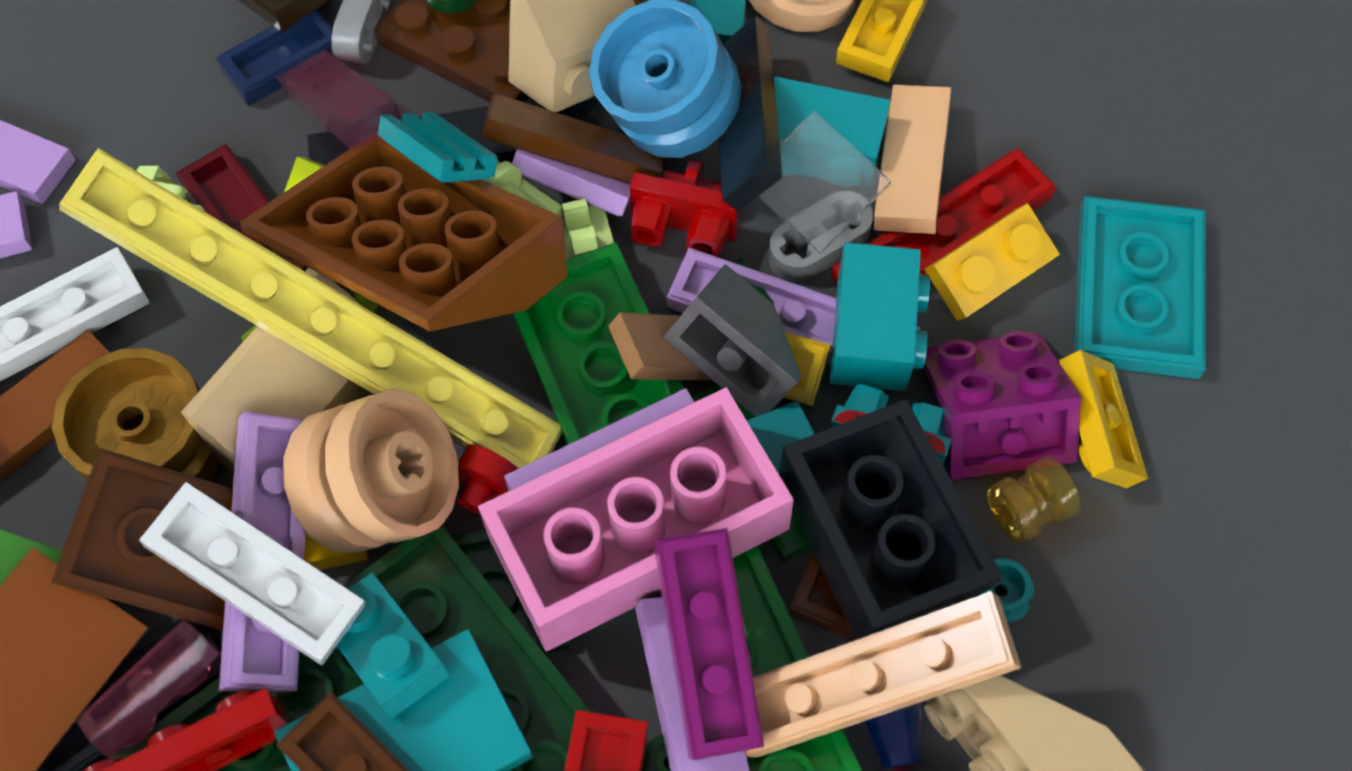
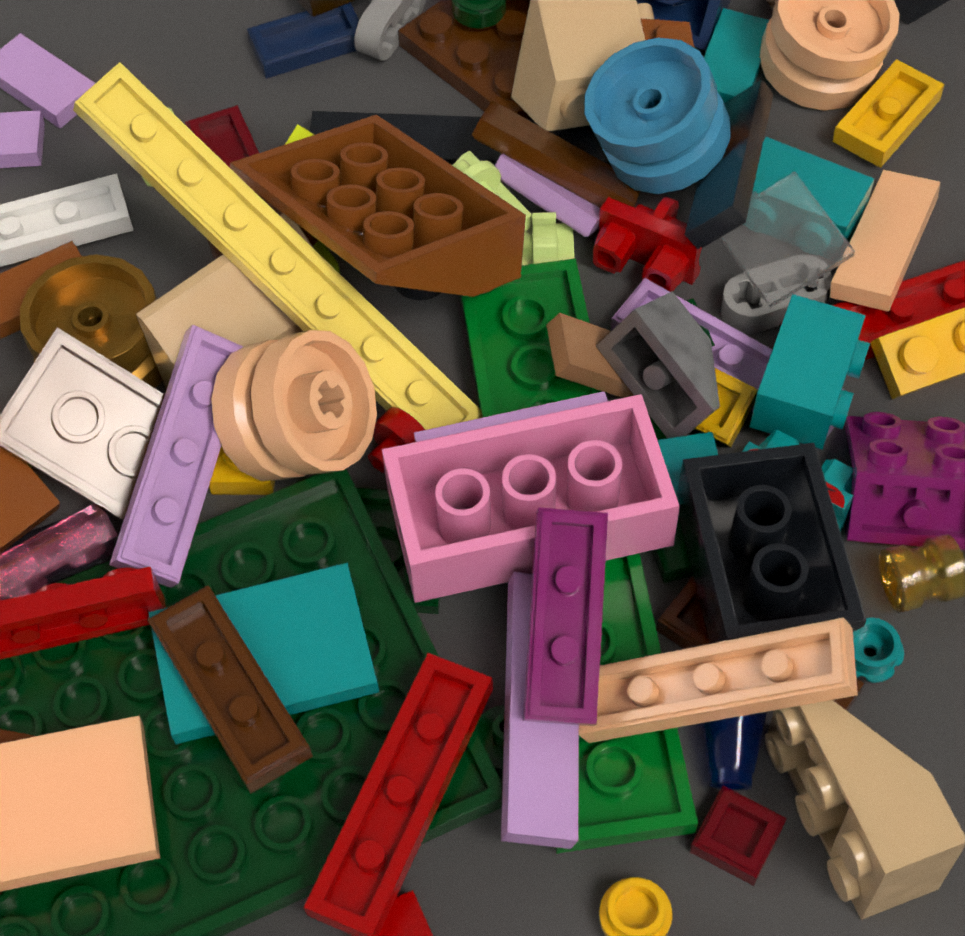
camera: 15 degrees right, 5 degrees down
(253, 573) = (165, 463): white plate -> none
(338, 98) = (349, 82): clear pink tile -> none
(389, 651) = (264, 558): teal plate -> none
(437, 147) = (425, 132): teal tile -> none

